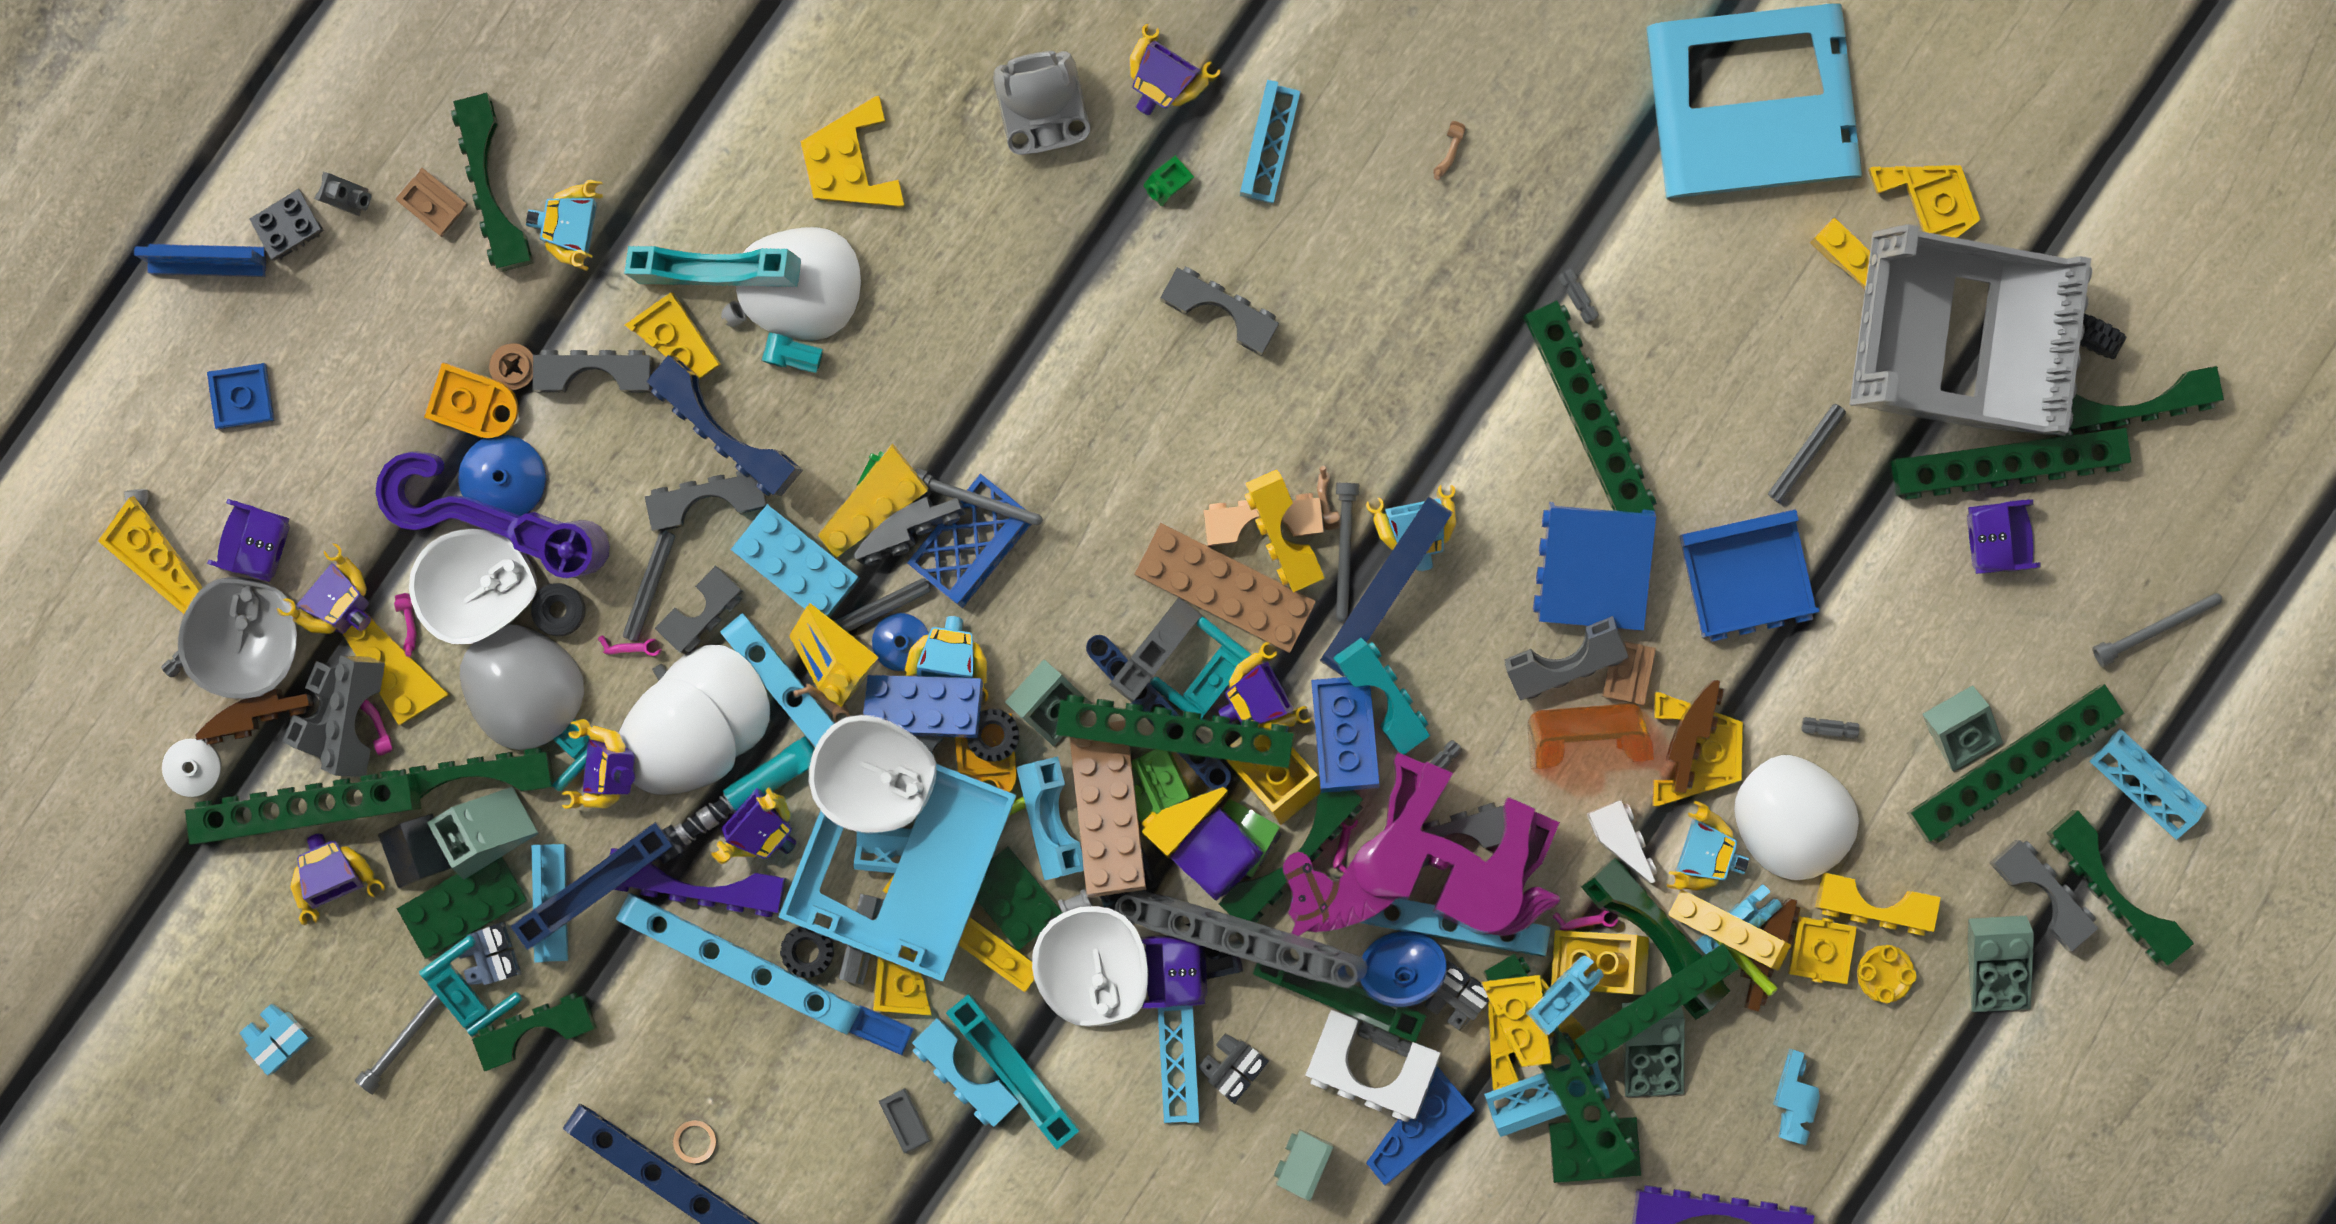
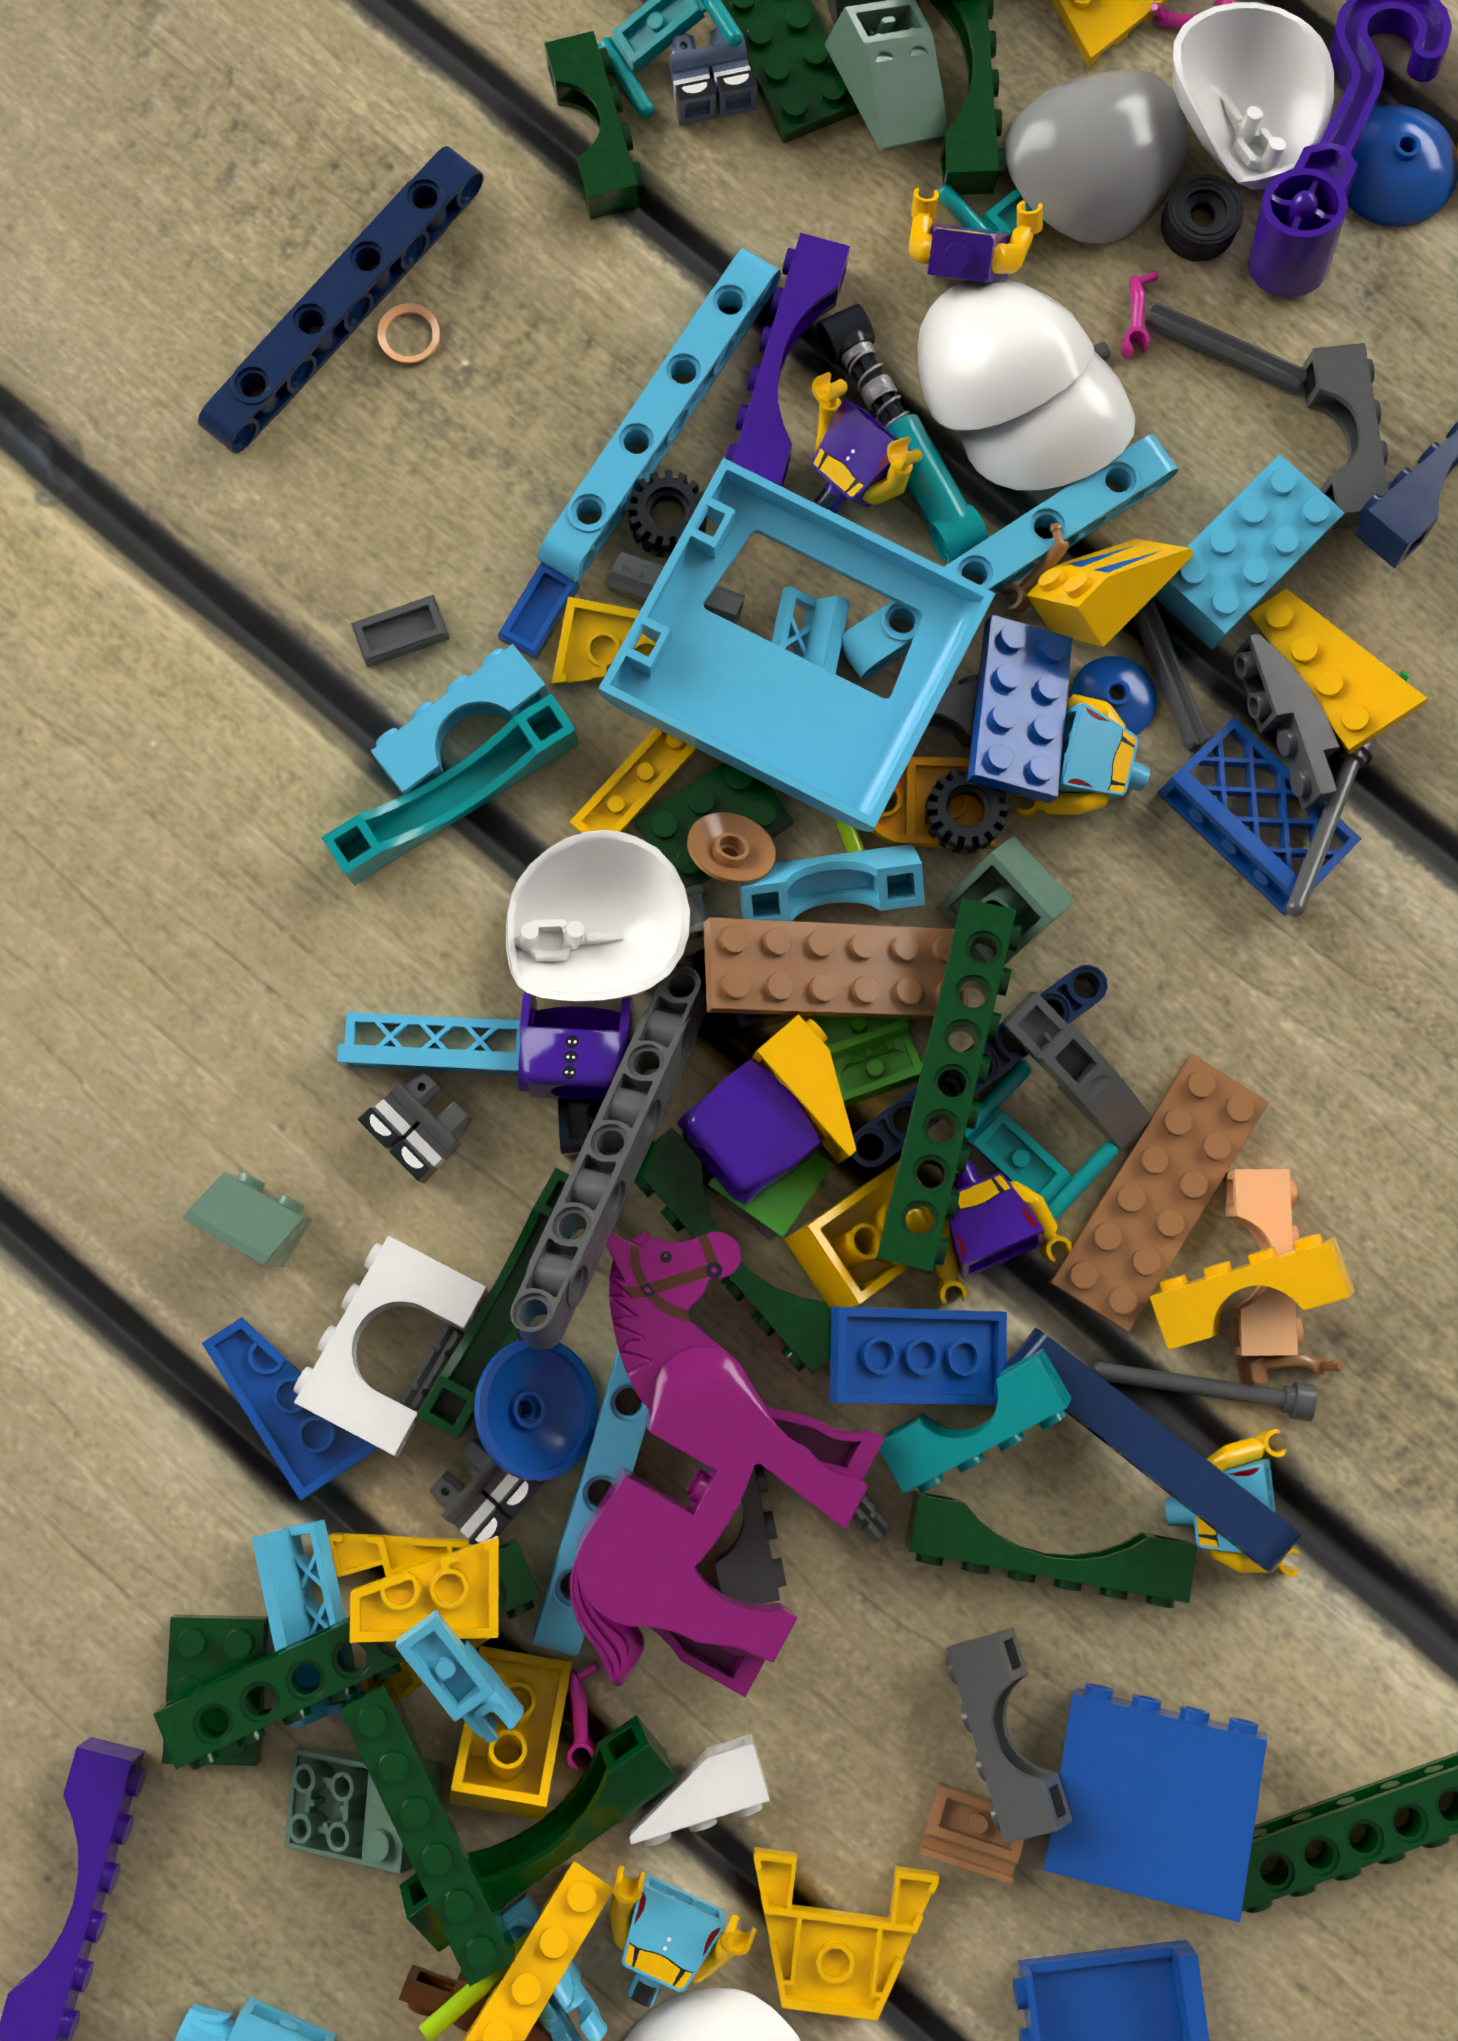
camera: 90 degrees right, 5 degrees down
(548, 880) = (777, 165): medium azure fence -> none
(592, 886) = (828, 253): dark blue arch -> none
(719, 594) = (1203, 440): dark grey arch -> none
(871, 774) = (929, 604): white piece -> none
(1025, 883) = (731, 848): none -> medium nougat dish
(1343, 845) = (741, 1334): dark pink piece -> none
(1458, 580) = (1141, 1565): none -> dark green arch
(1554, 727) = (892, 1692): clear orange windscreen -> none
(1695, 722) = (884, 1944): reddish brown slope -> none

